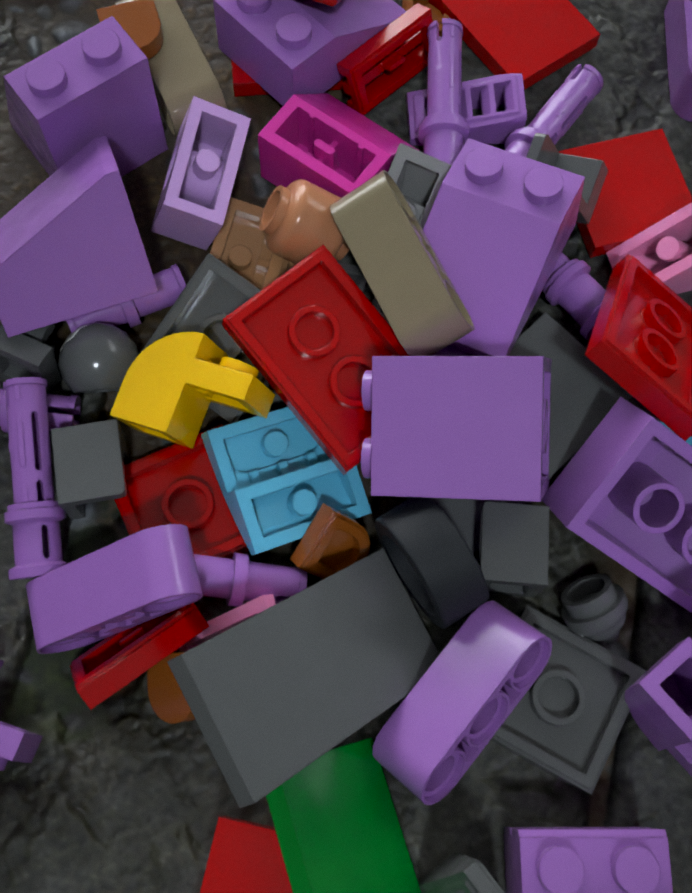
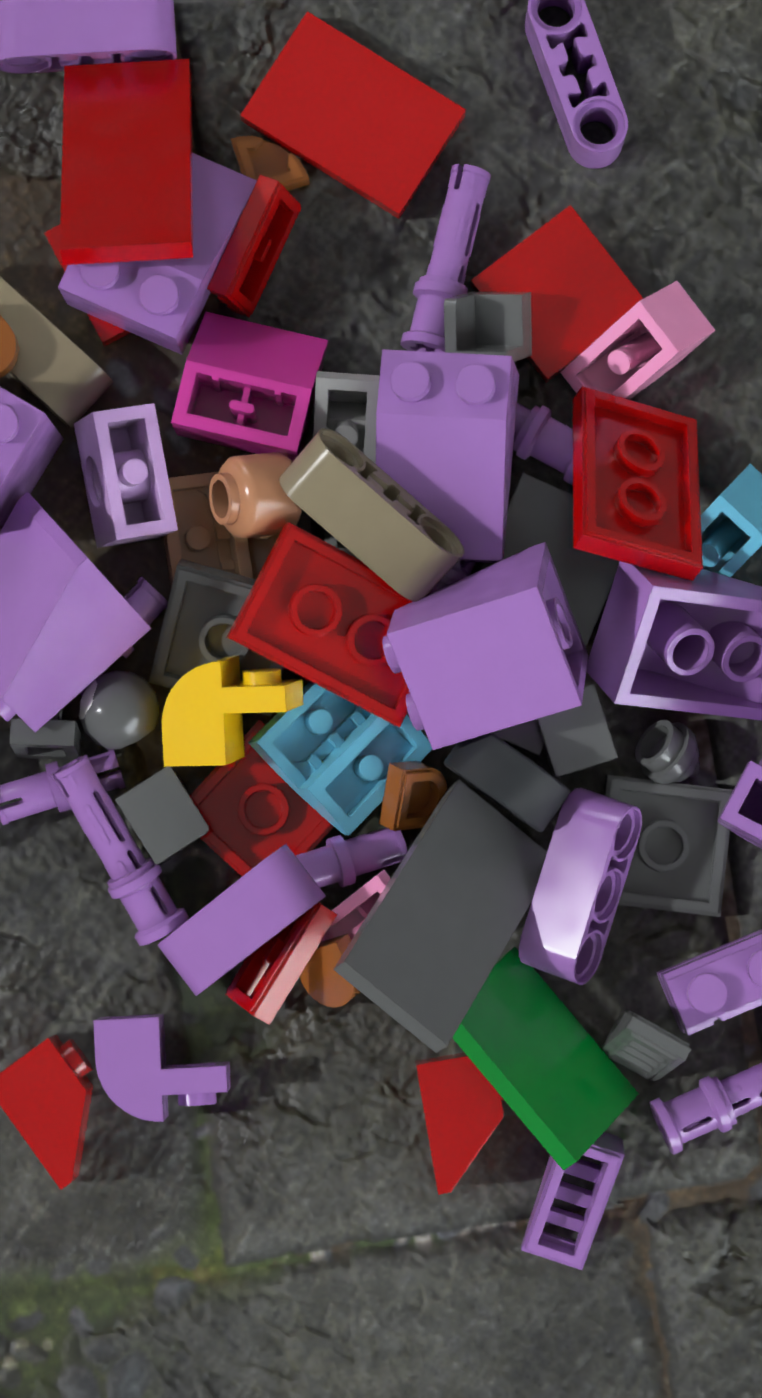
camera: 15 degrees left, 15 degrees up
(444, 128) = (346, 314): medium lavender pin -> none
(487, 94) = (389, 279): medium lavender slope -> none

